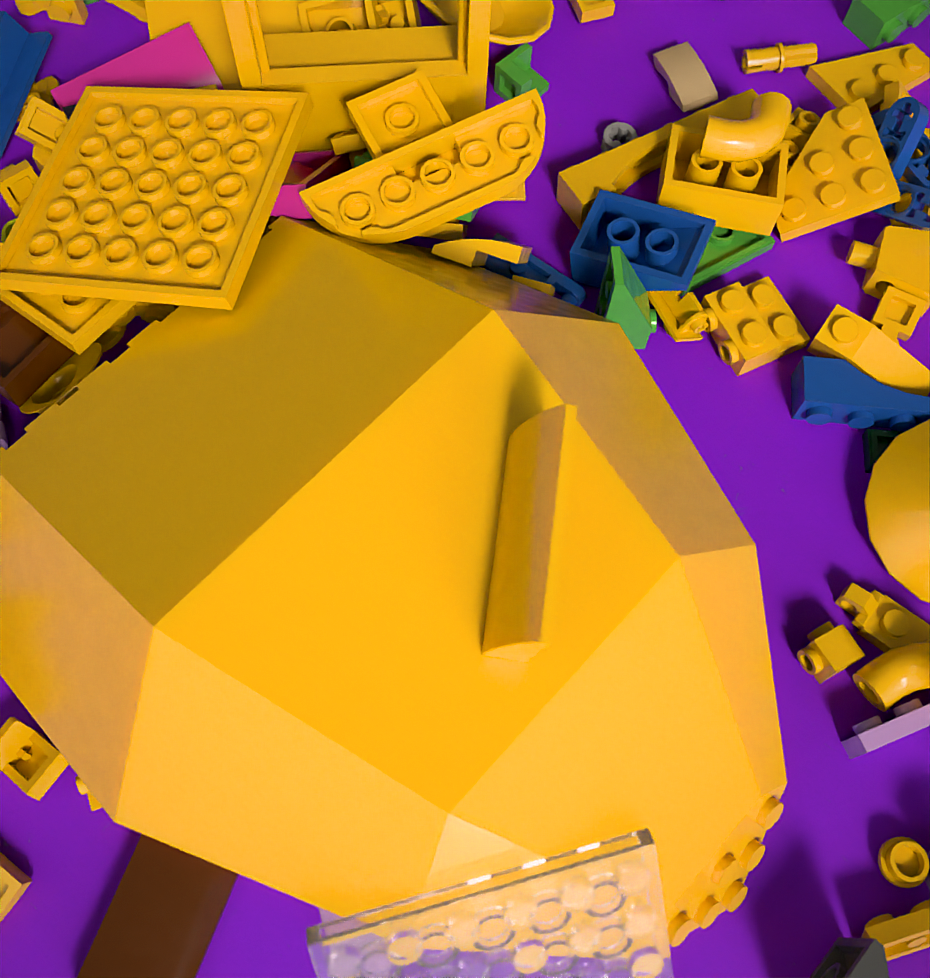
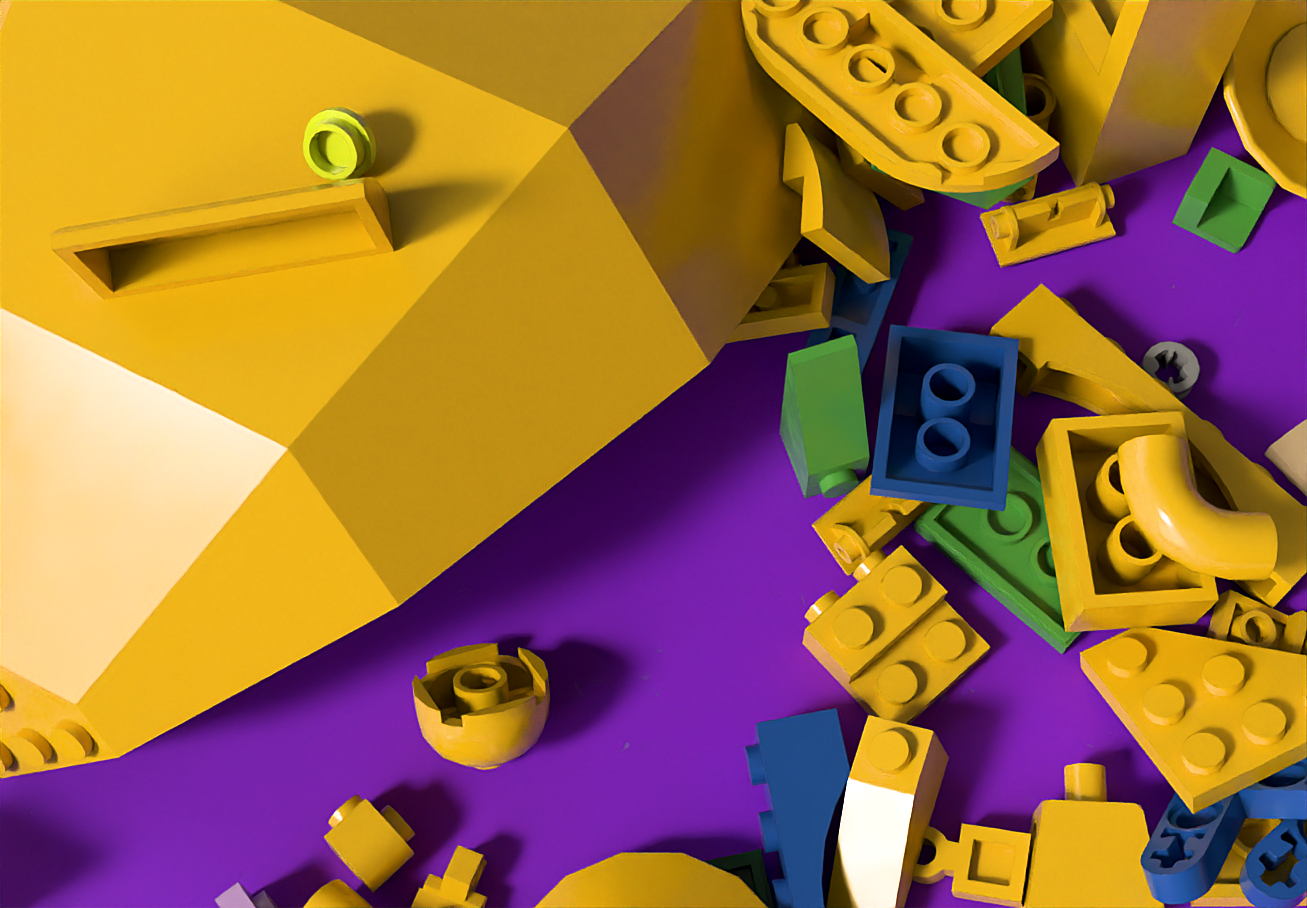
camera: 80 degrees right, 0 degrees up
(470, 451) = (339, 144): none -> neon yellow plate
(778, 547) = (482, 704): none -> yellow cylinder

